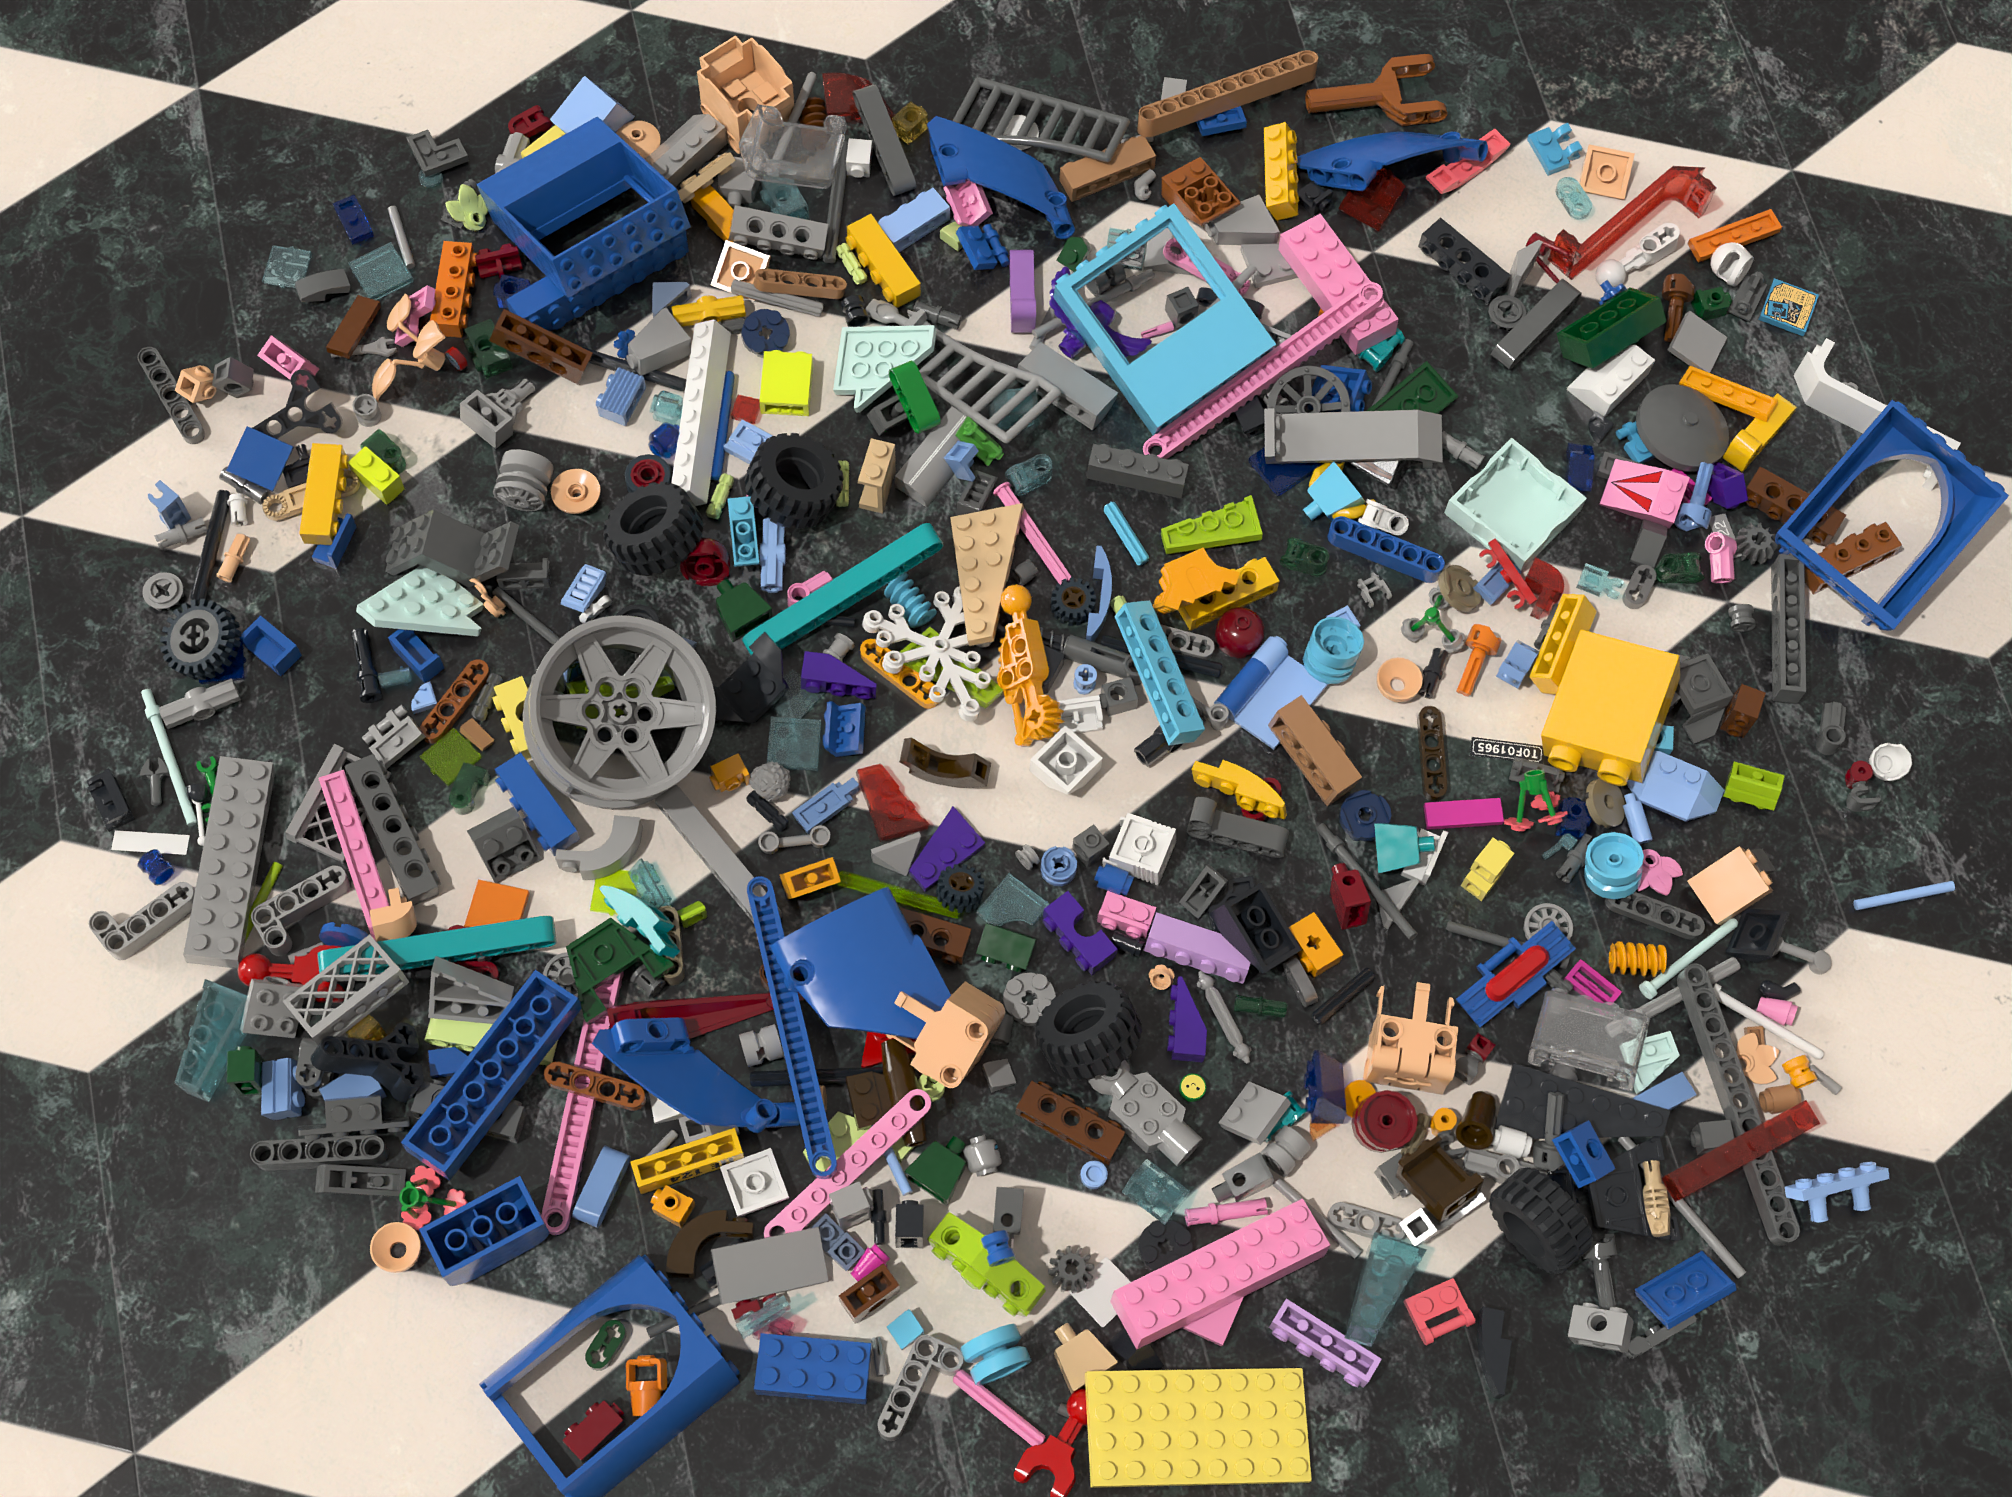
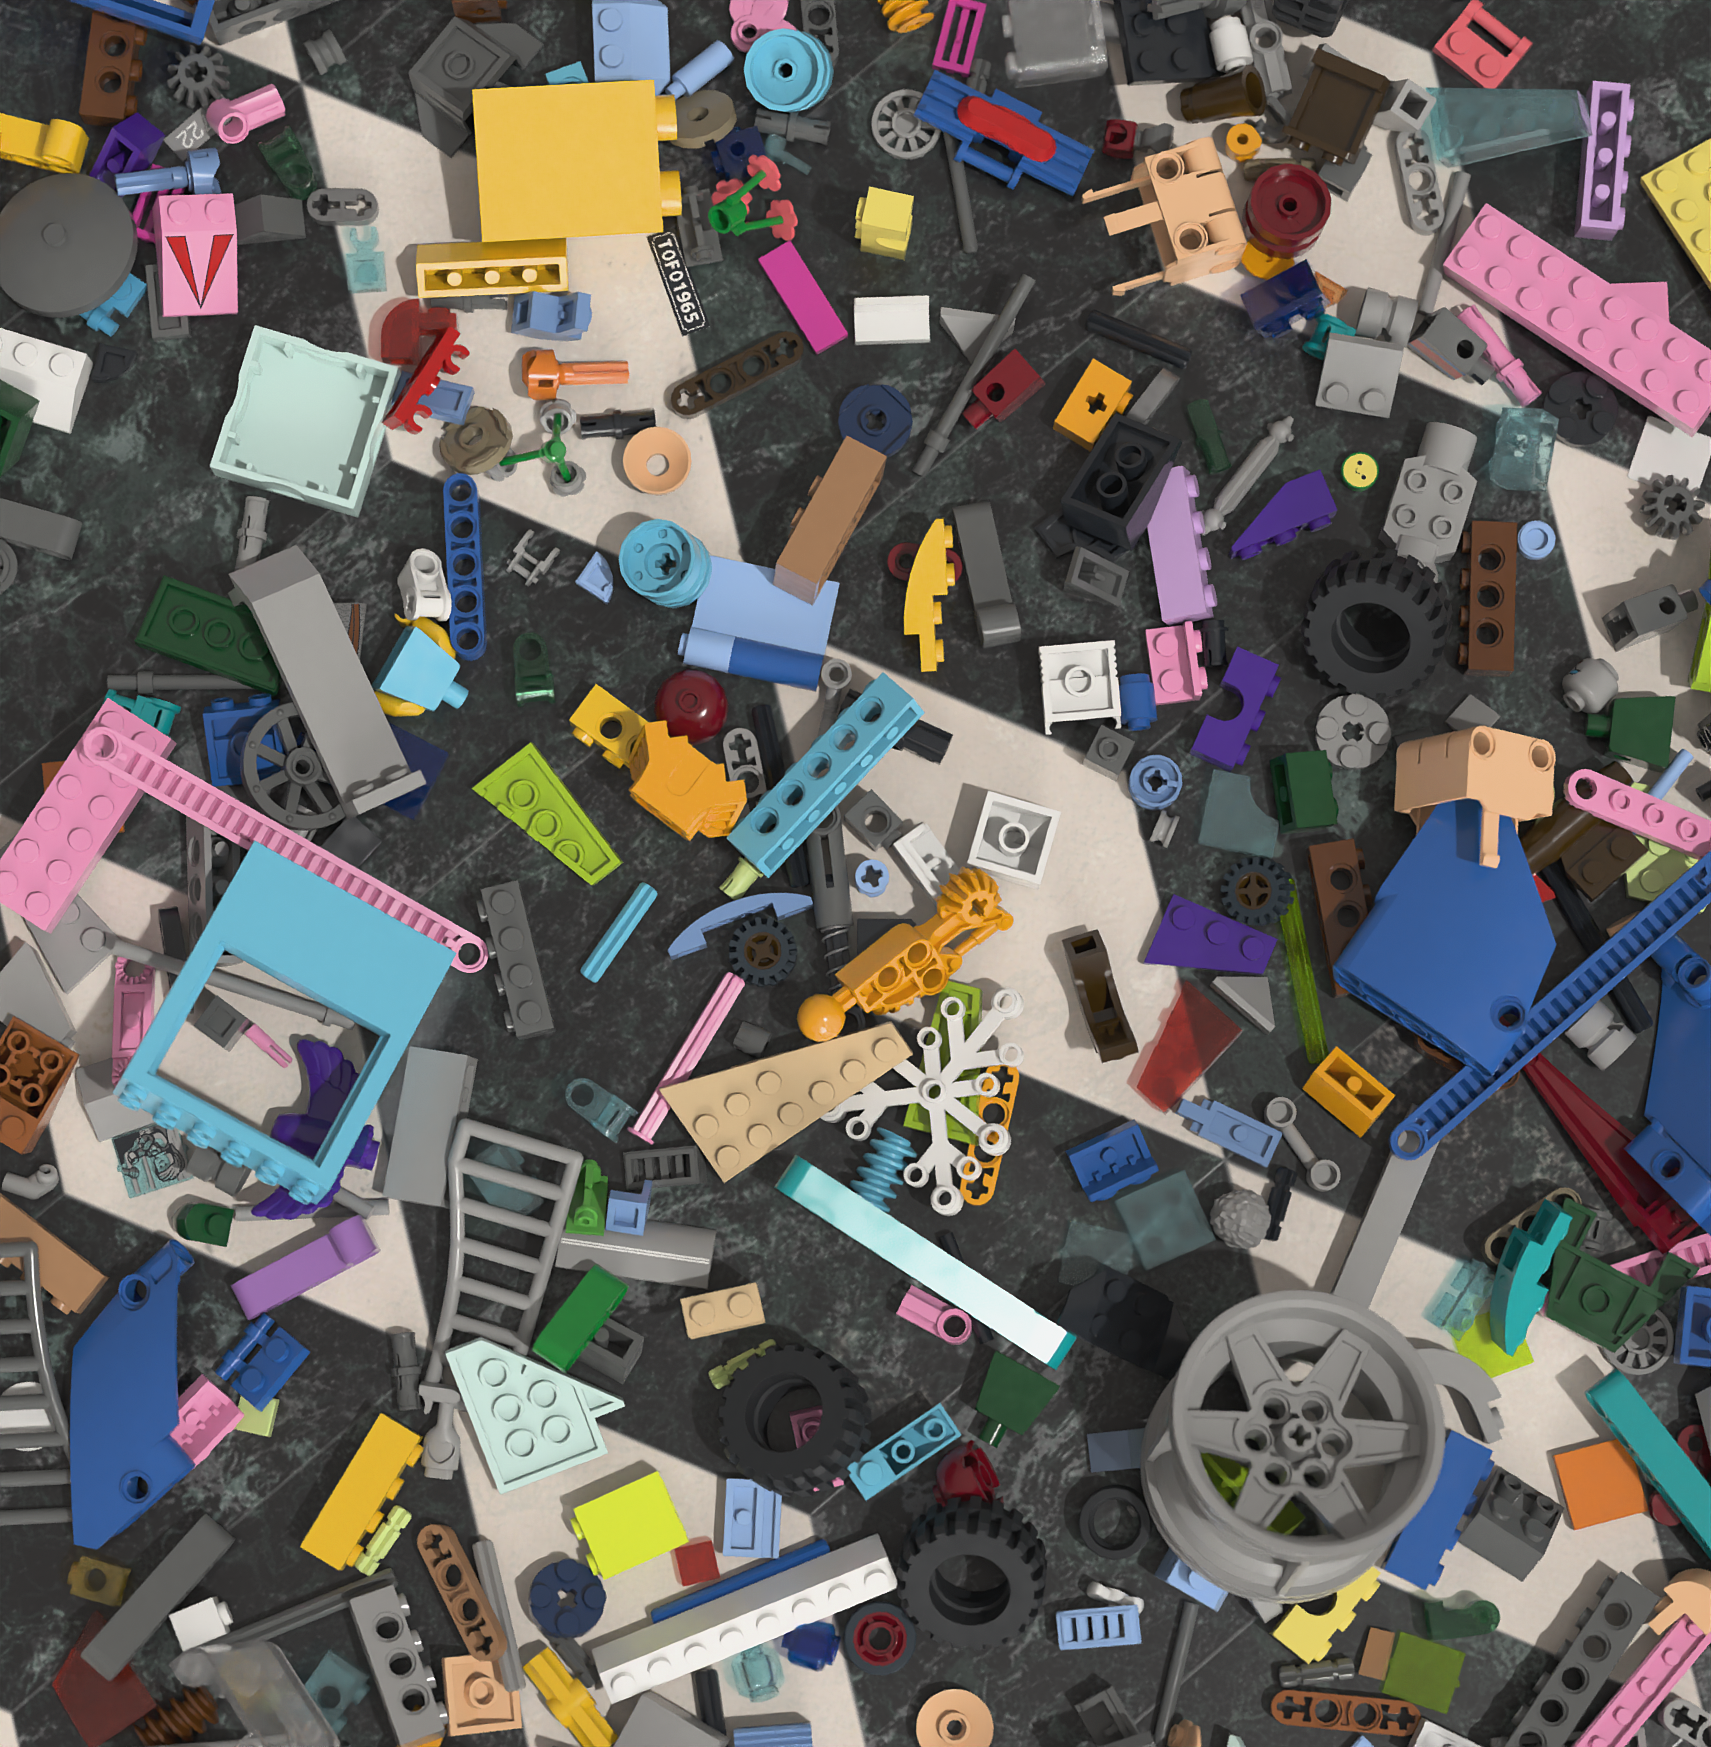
camera: 115 degrees left, 15 degrees up
(692, 914) = (1469, 1225): lime slope -> none
(720, 496) = (852, 1523): yellowish green axle -> none
(729, 774) = (1256, 1277): light orange brick -> none
(772, 556) = (913, 1396): light blue piece -> none
(830, 675) = (1045, 1225): dark purple slope -> none
(840, 646) = (1000, 1232): light grey bush -> none
(854, 309) = (455, 1494): black wheel -> none
(915, 219) = (267, 1487): light blue brick -> none
(1161, 982) = (1237, 577): light nougat plate -> none
(1400, 846) = (906, 351): teal torso -> none
(1580, 466) = (197, 359): clear blue slope -> none

